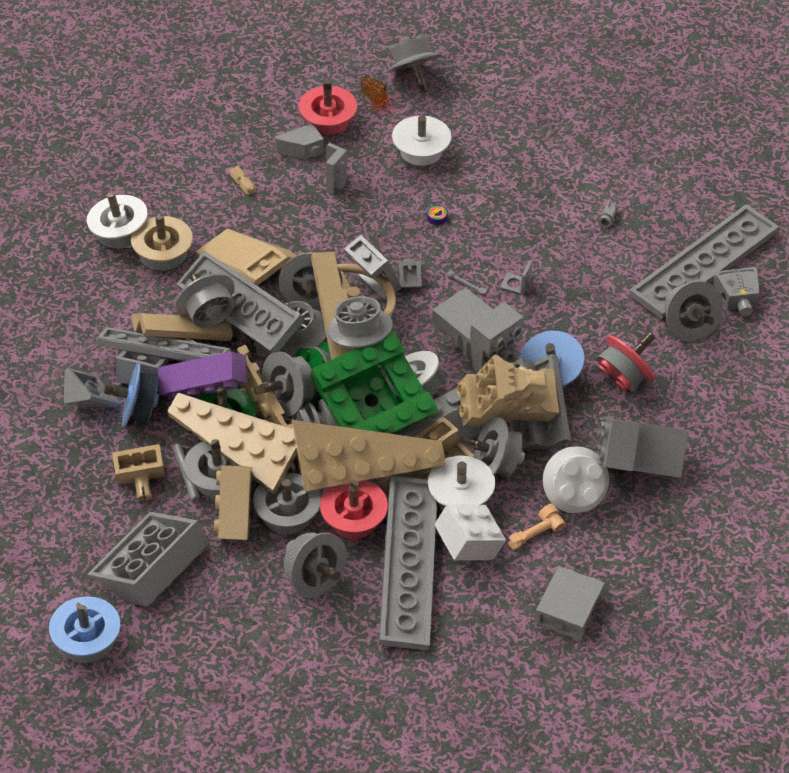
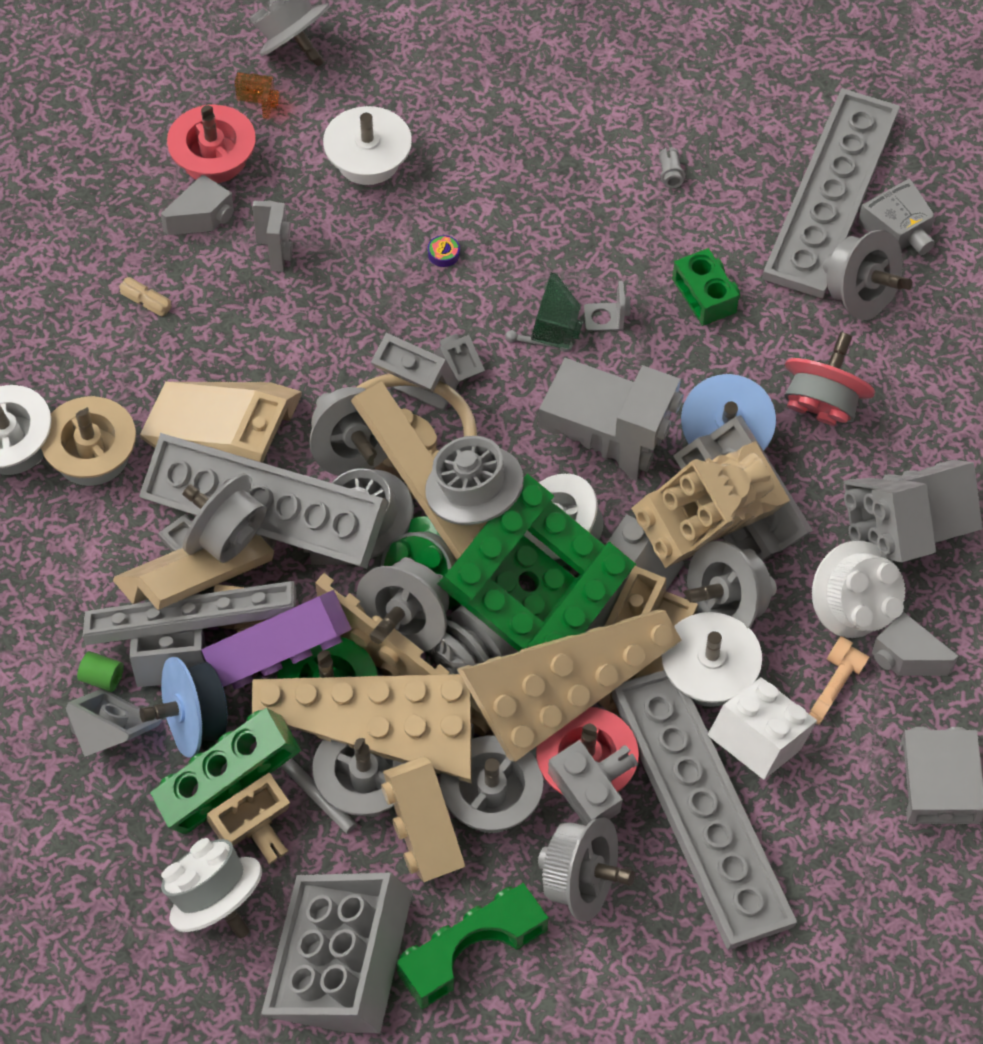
camera: 25 degrees left, 10 degrees up
(92, 490) = (210, 886): none -> white piece
(99, 365) = (100, 671): none -> bright green gear
(153, 428) = (273, 748): none -> brick
(256, 577) = (510, 919): none -> green arch
(341, 514) = (588, 782): none -> light grey brick
(482, 270) = (557, 316): none -> clear green slope
(588, 287) = (701, 281): none -> green brick
(593, 528) = (912, 650): none -> light grey slope

